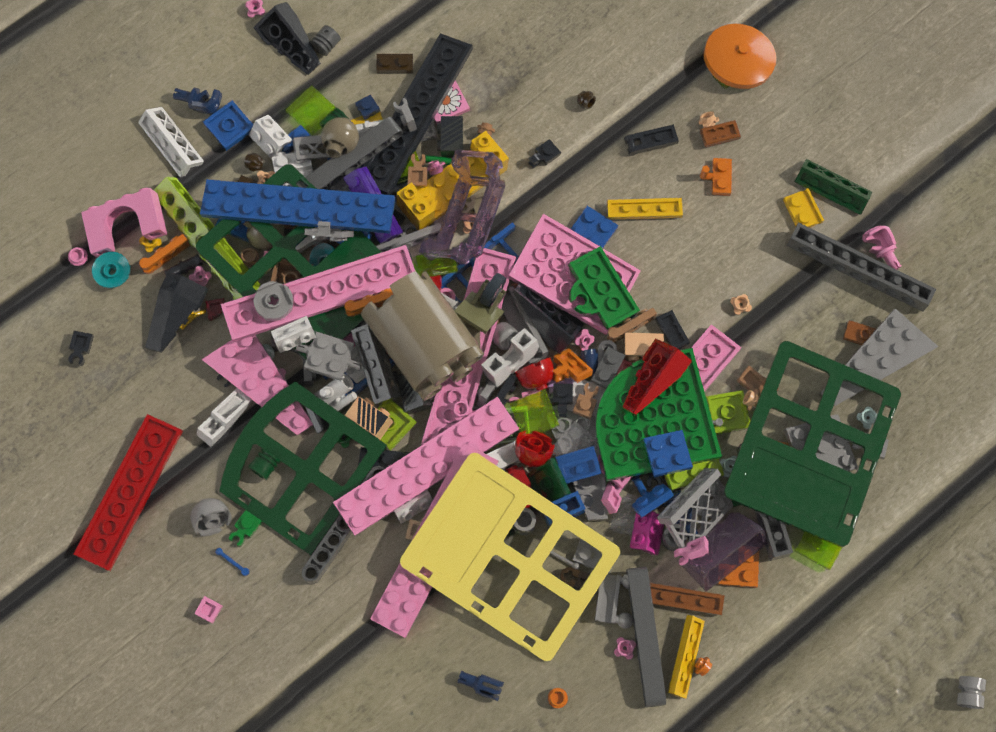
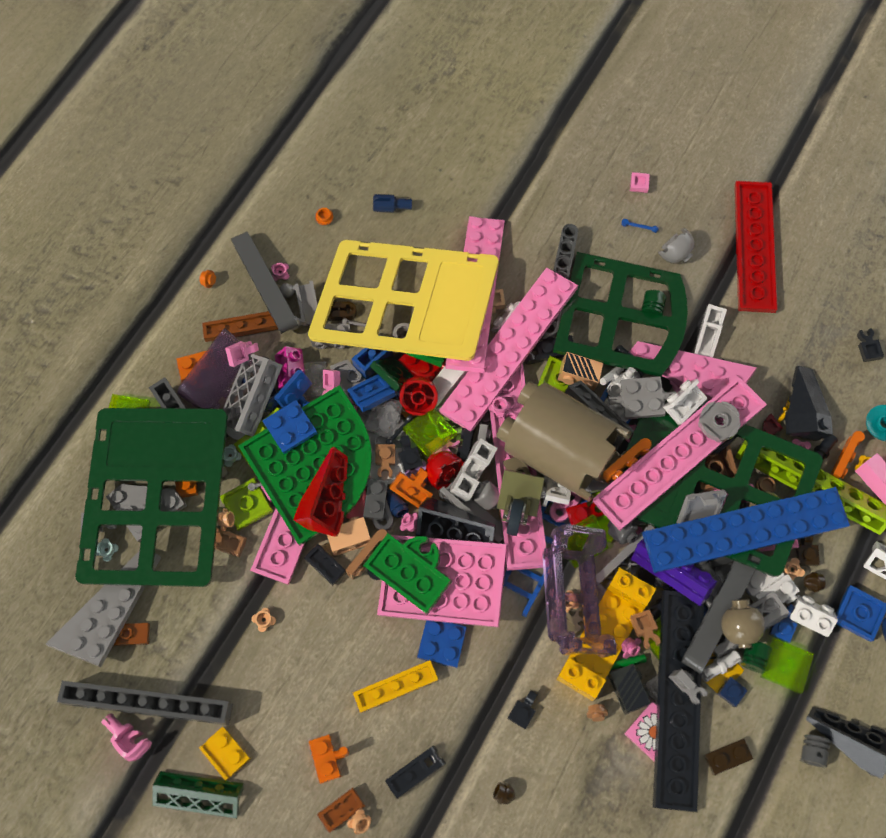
camera: 165 degrees right, 5 degrees down
(246, 525) = (642, 254): green plate -> none
(576, 417) = (408, 420): none -> black hinge
(686, 656) = (224, 281): yellow plate -> none

